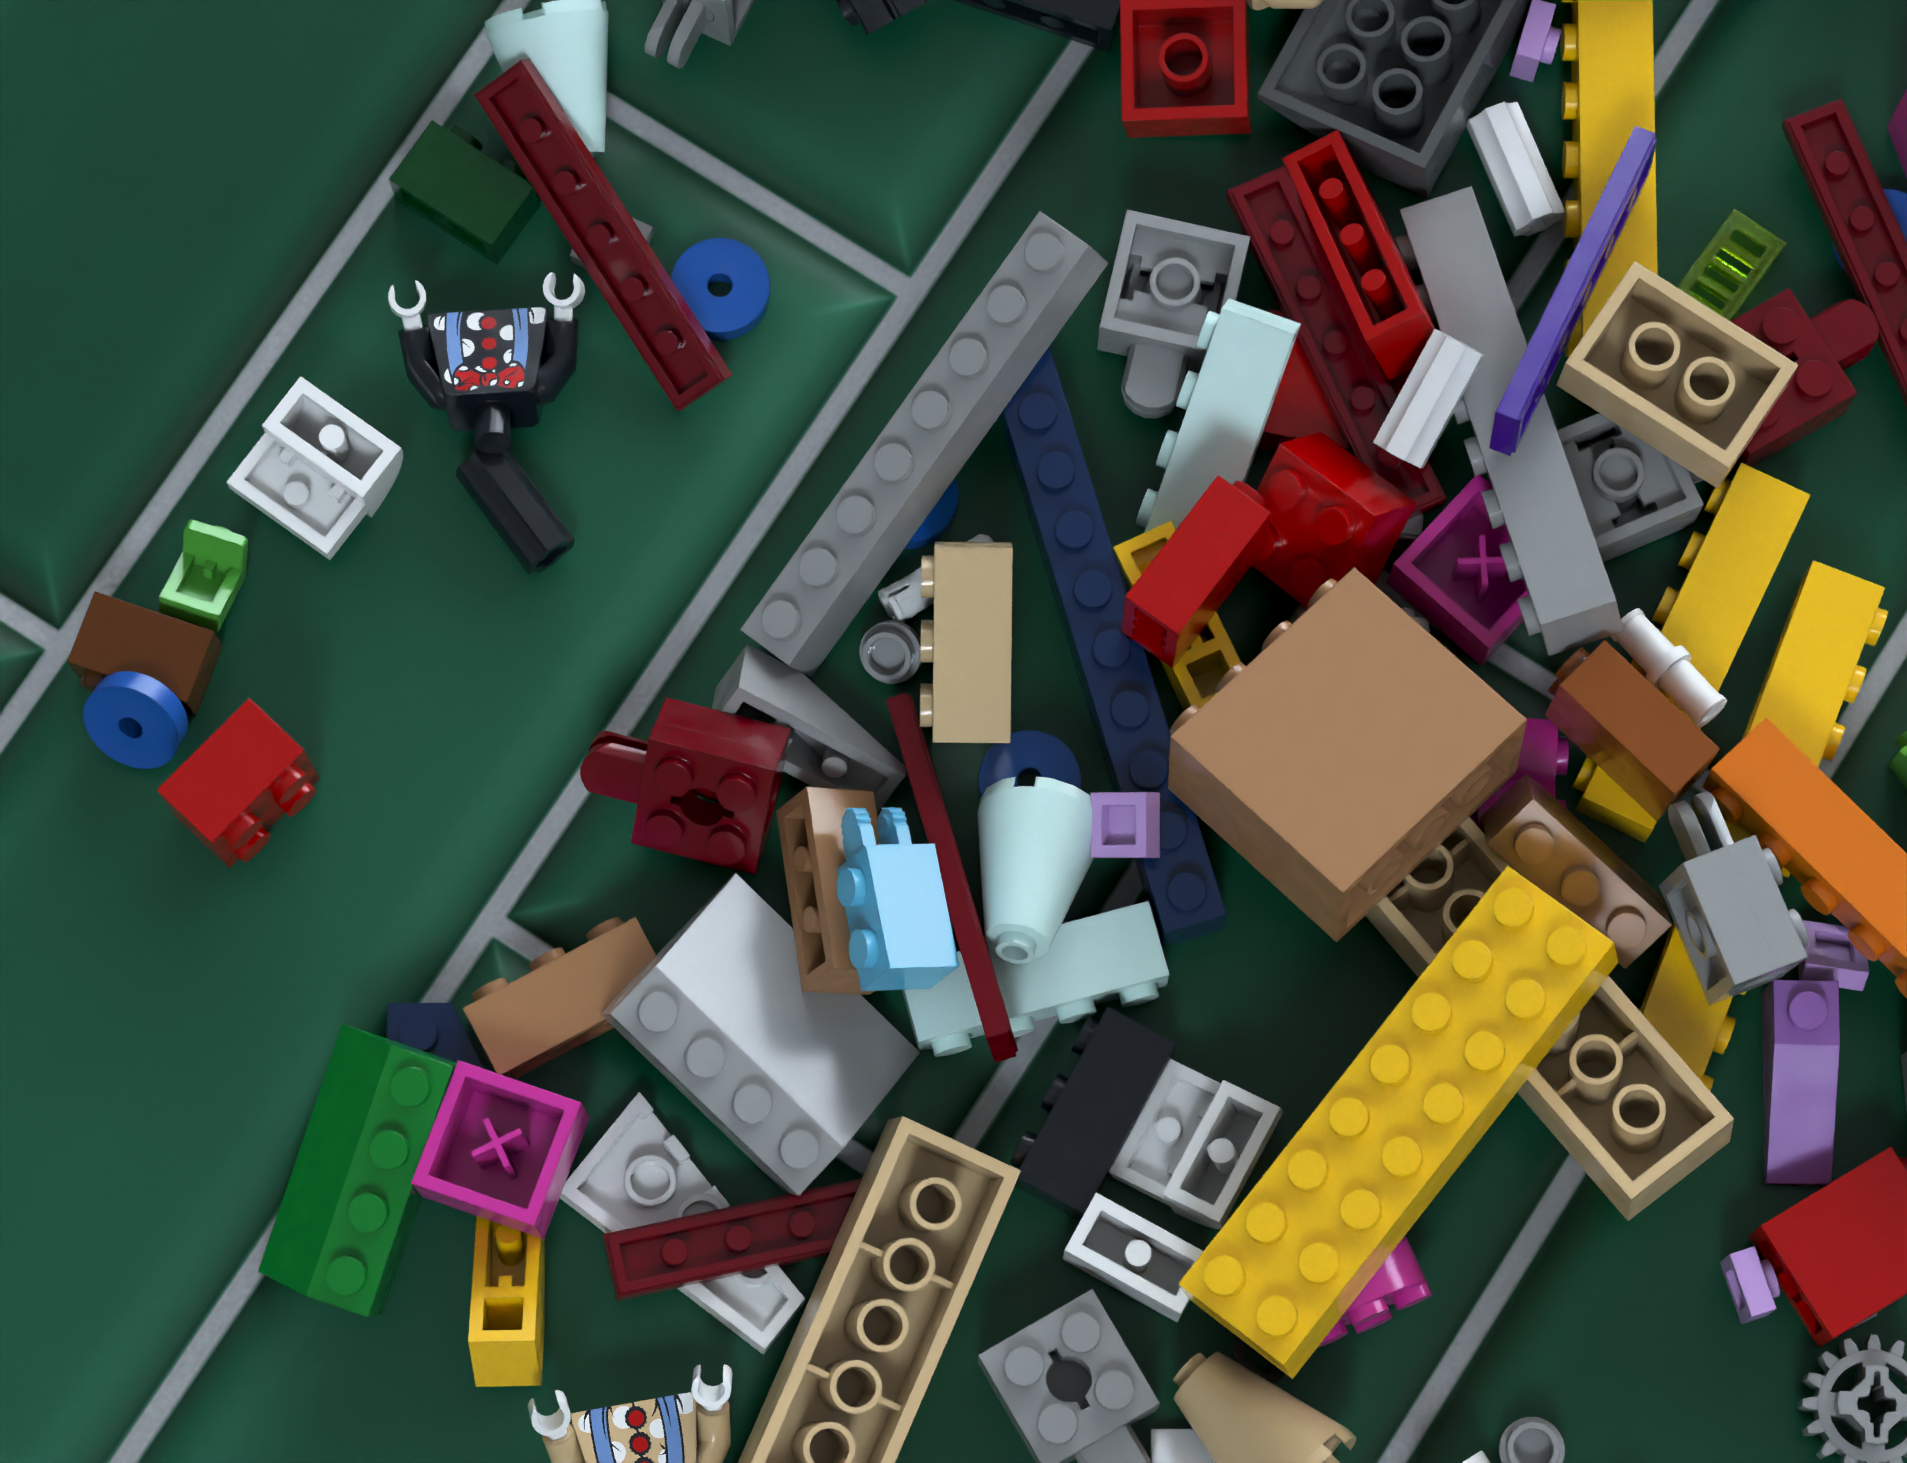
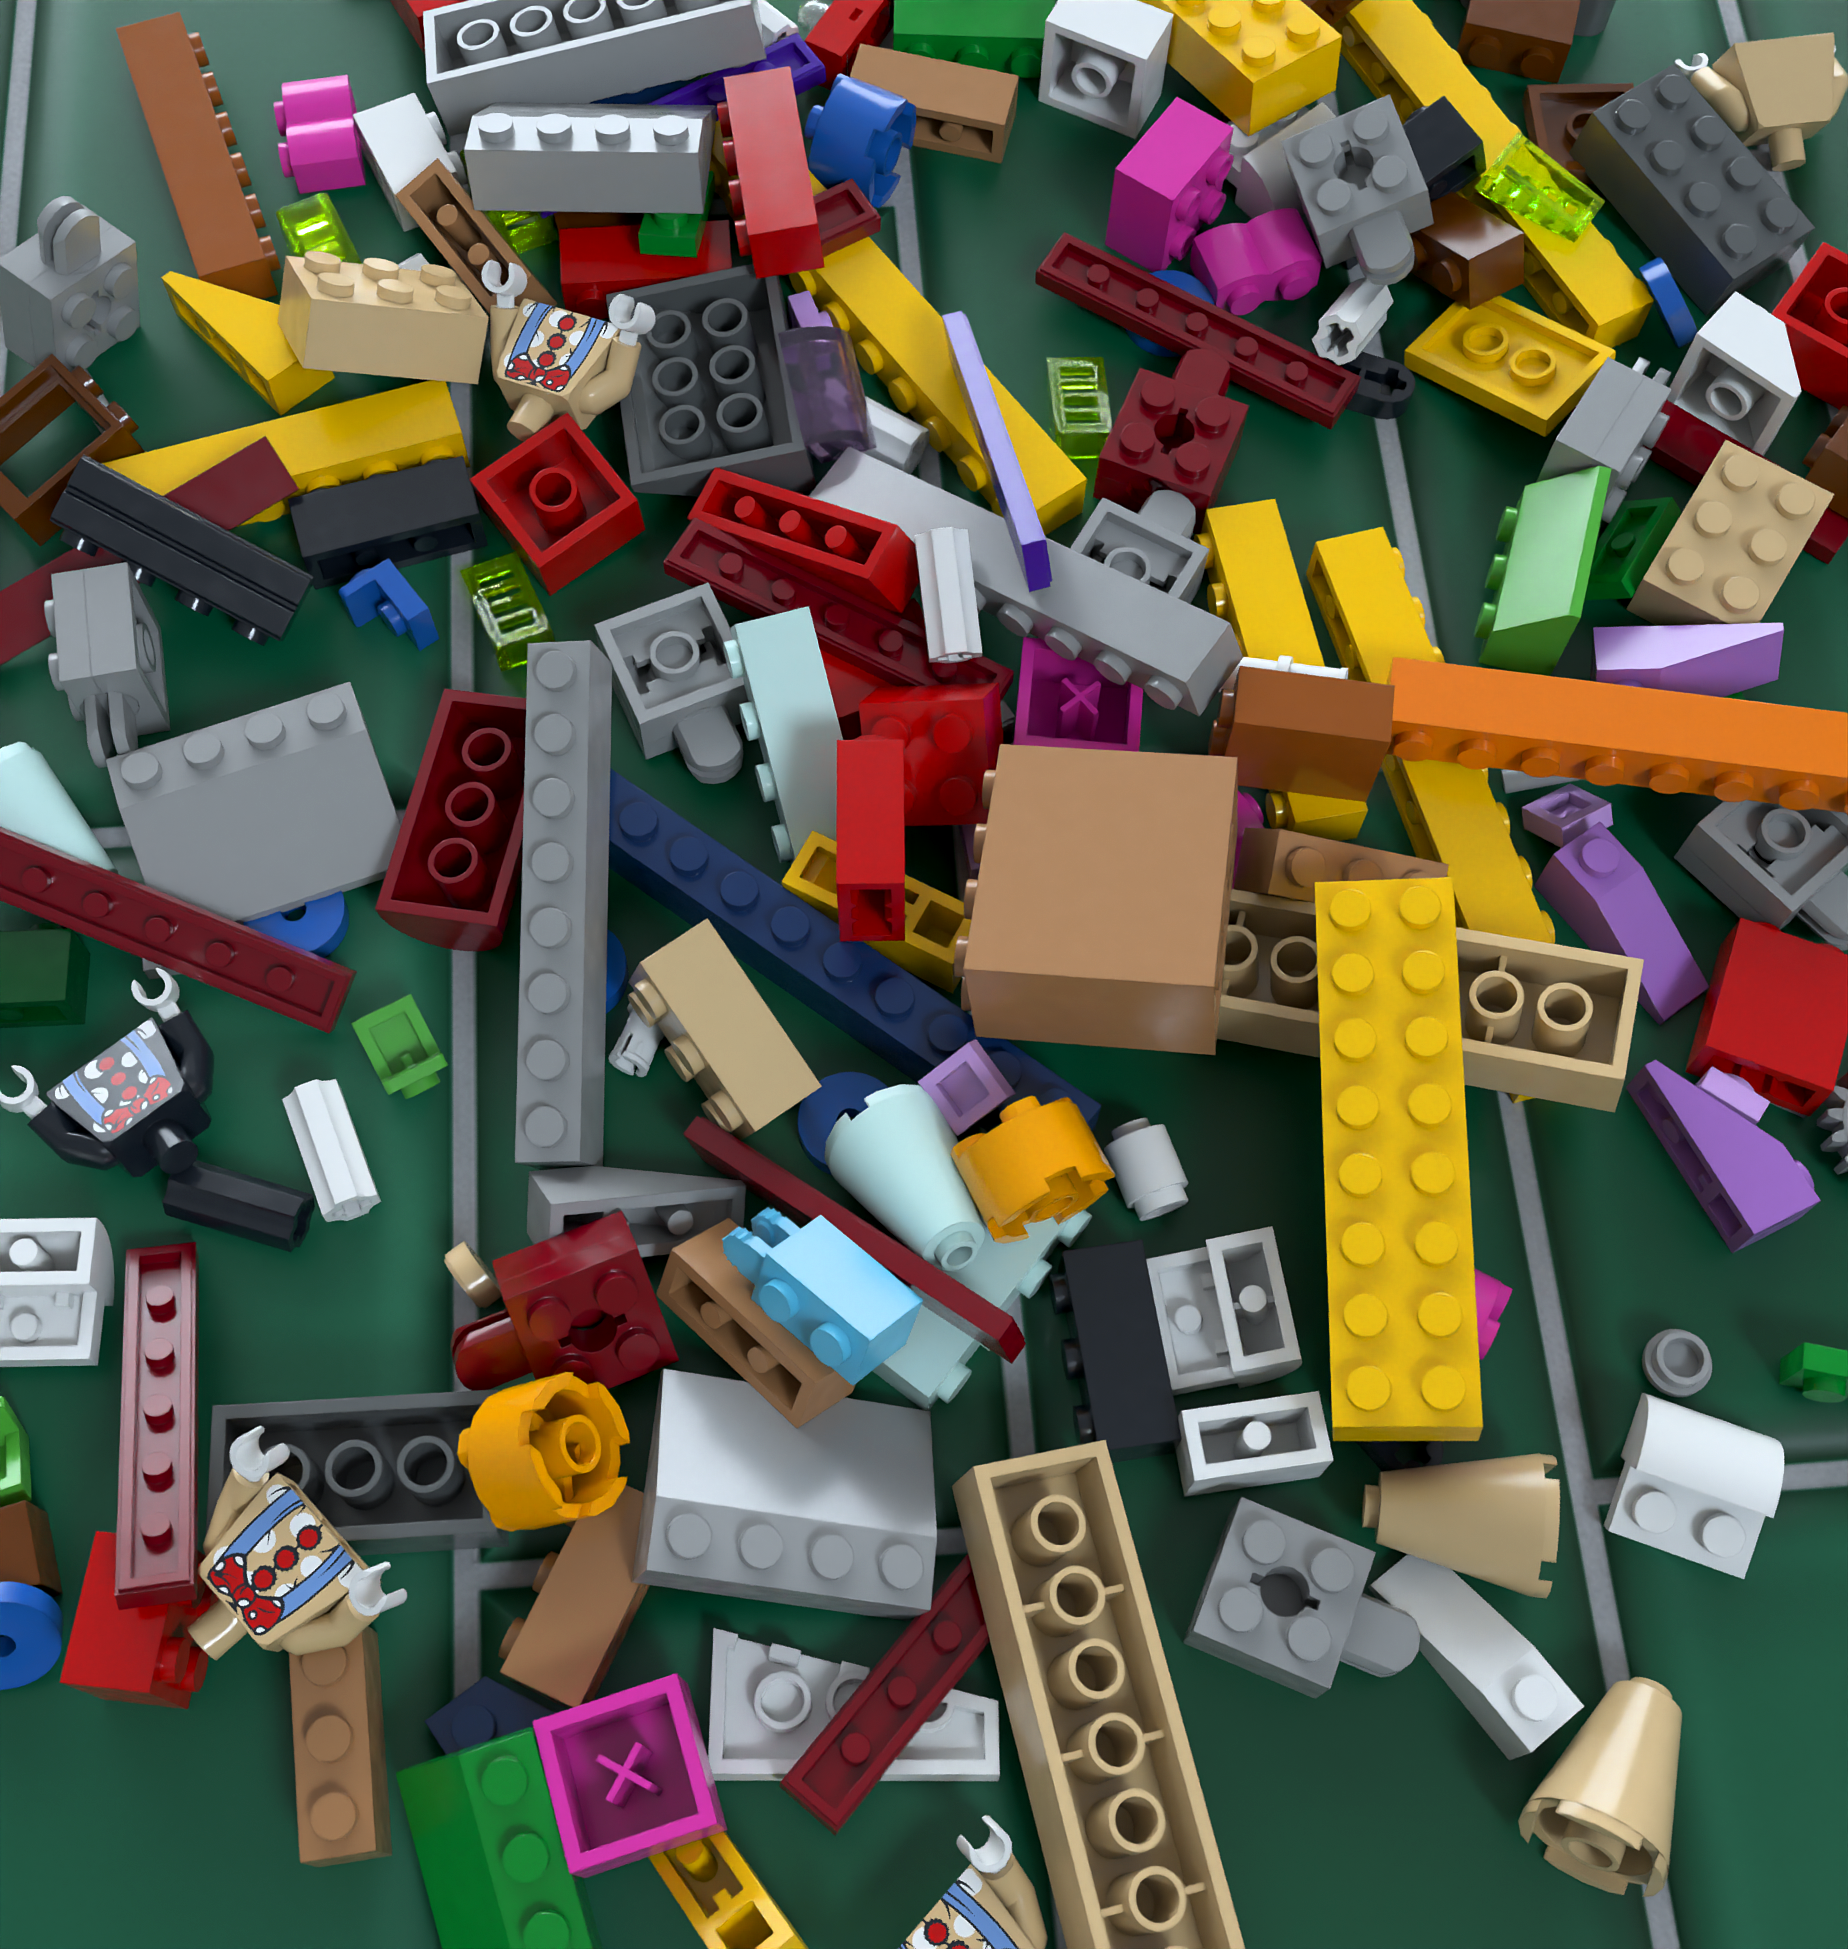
camera: 40 degrees left, 10 degrees down
(317, 974) = (340, 1753): none -> medium nougat brick
(346, 642) = (159, 1429): none -> tile
(360, 819) = (281, 1565): none -> torso
(462, 789) = (371, 1466): none -> dark grey brick
(603, 874) = (545, 1452): none -> light orange brick
(613, 512) = (331, 1150): none -> white axle
(650, 690) = (473, 1275): none -> tan tile
(723, 466) = (401, 1047): none -> bright green bracket
(753, 183) = (261, 808): none -> light grey slope
(890, 651) = (655, 1099): light grey plate -> none
(896, 312) = (462, 827): none -> dark red brick
(987, 52) = (388, 594): none -> blue bracket
(1071, 173) = (512, 647): none -> clear neon green slope
(1121, 926) = (1032, 1167): none -> light orange brick
(1233, 990) = (1147, 1168): none -> white brick
(1488, 123) = (827, 391): none -> clear purple brick
(1676, 374) = (1122, 457): tan brick -> none
(1710, 1338) = (1730, 1164): none -> medium lavender slope
(1729, 904) = (1489, 811): light grey brick -> none

